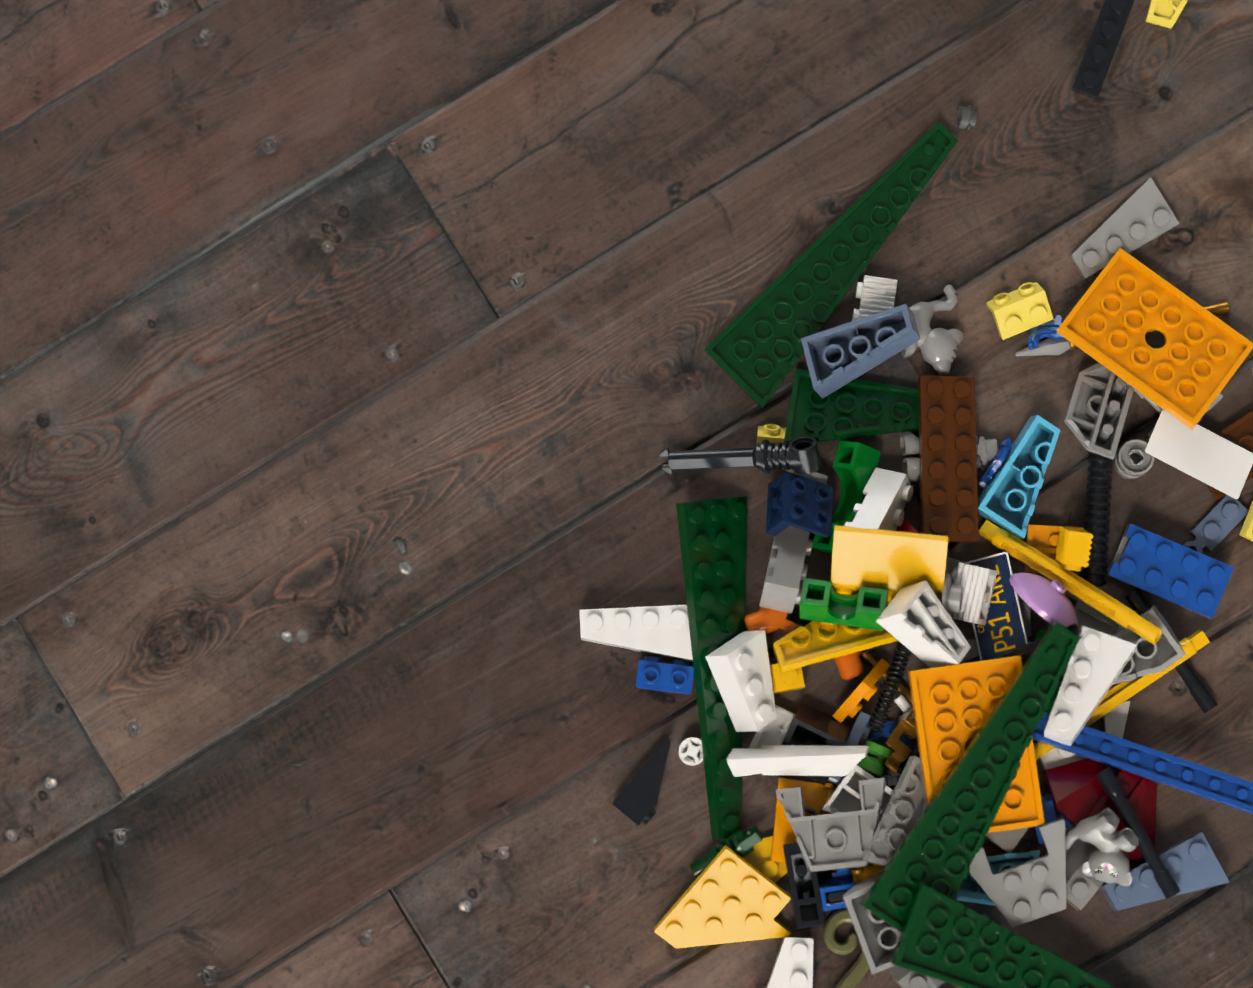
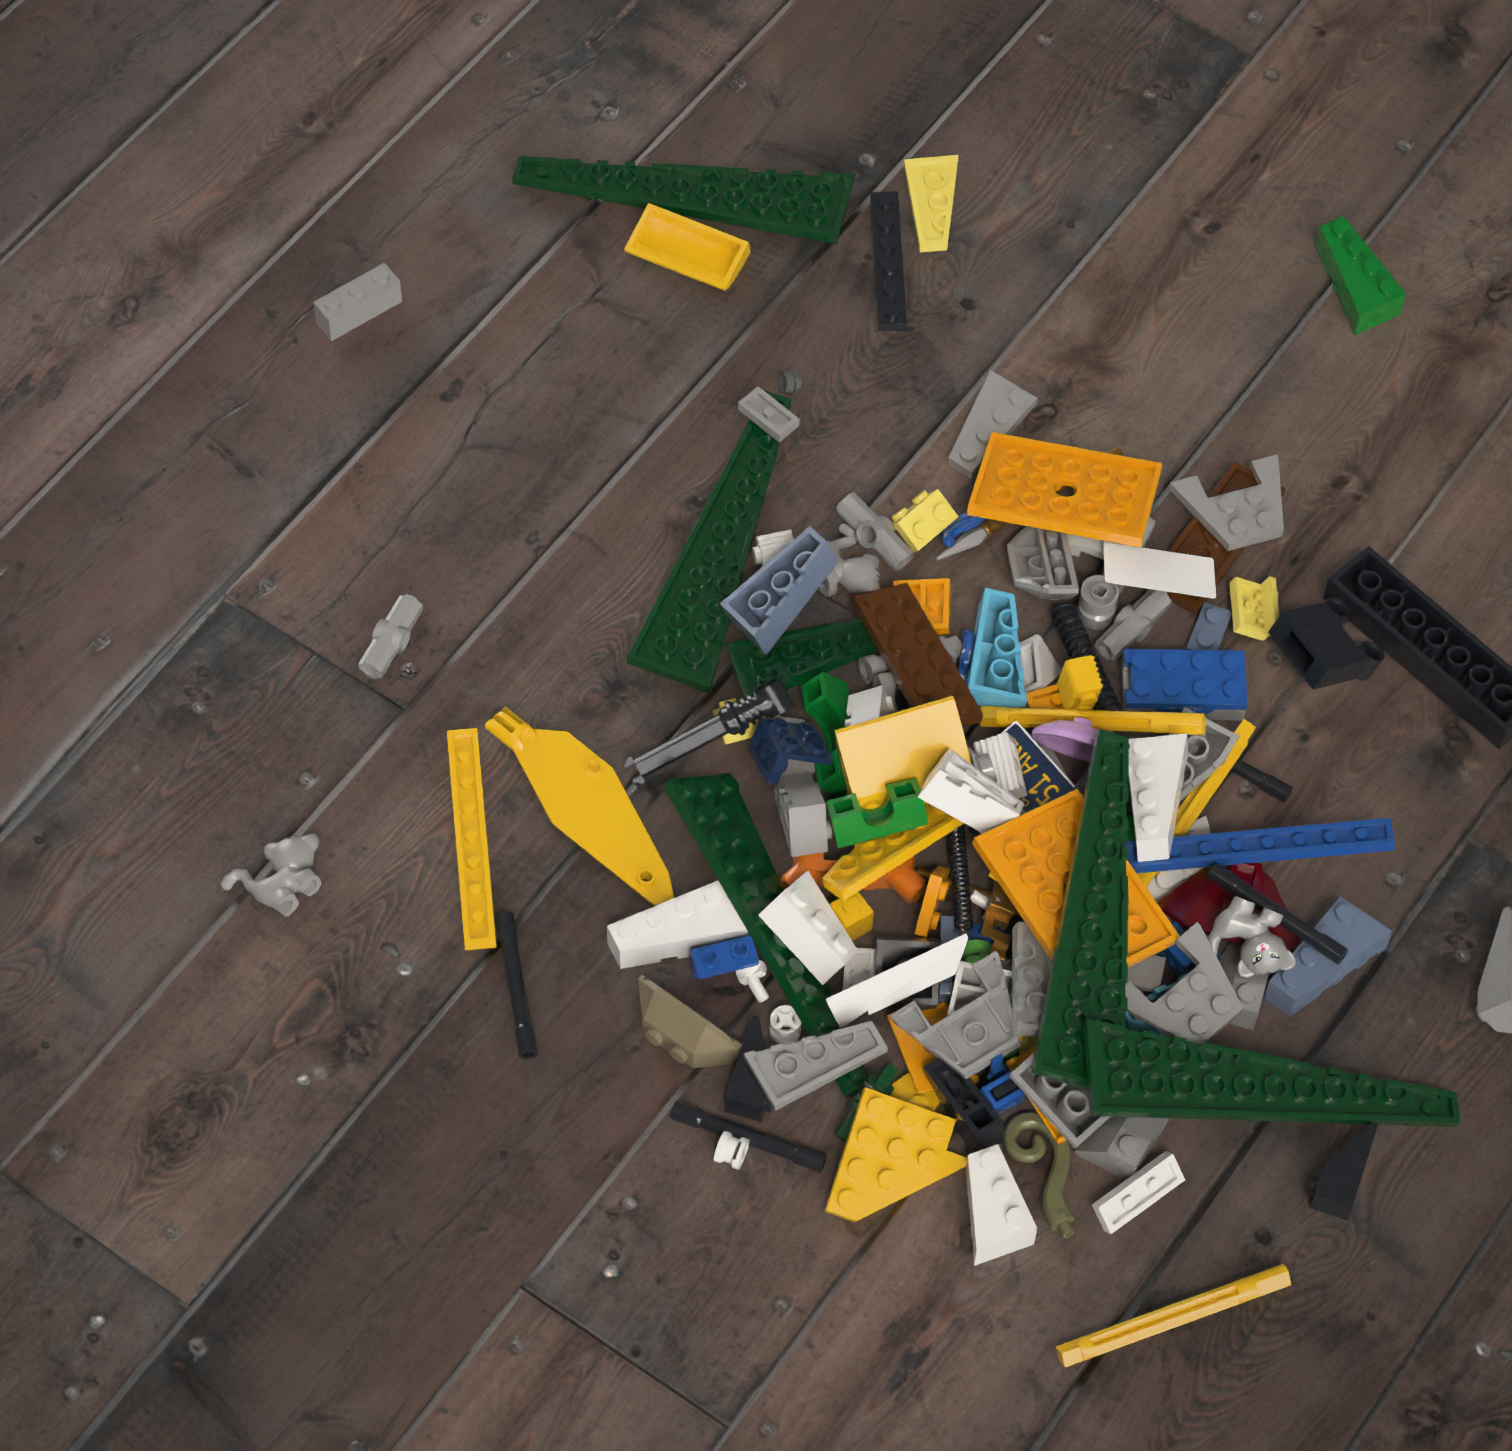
camera: 25 degrees left, 25 degrees down
(347, 433) = (293, 862): none -> light grey animal
(498, 579) = (524, 1030): none -> black piece
(505, 471) = (471, 839): none -> yellow plate
(512, 245) = (390, 636): none -> light grey piece
(598, 844) = (728, 1150): none -> white wheel
(604, 721) = (682, 1030): none -> dark tan wedge
(614, 478) = (586, 802): none -> yellow wing
(652, 868) = (796, 1153): none -> black piece
(682, 703) = (752, 977): none -> white plate
(685, 805) = (806, 1065): none -> light grey wing
(928, 153) = (768, 414): none -> light grey plate
(971, 309) = (874, 531): none -> light grey piece
(991, 397) = (935, 600): none -> light orange wing
(1054, 497) = (1037, 663): none -> white slope
(1153, 491) = (1132, 624): none -> light grey piece

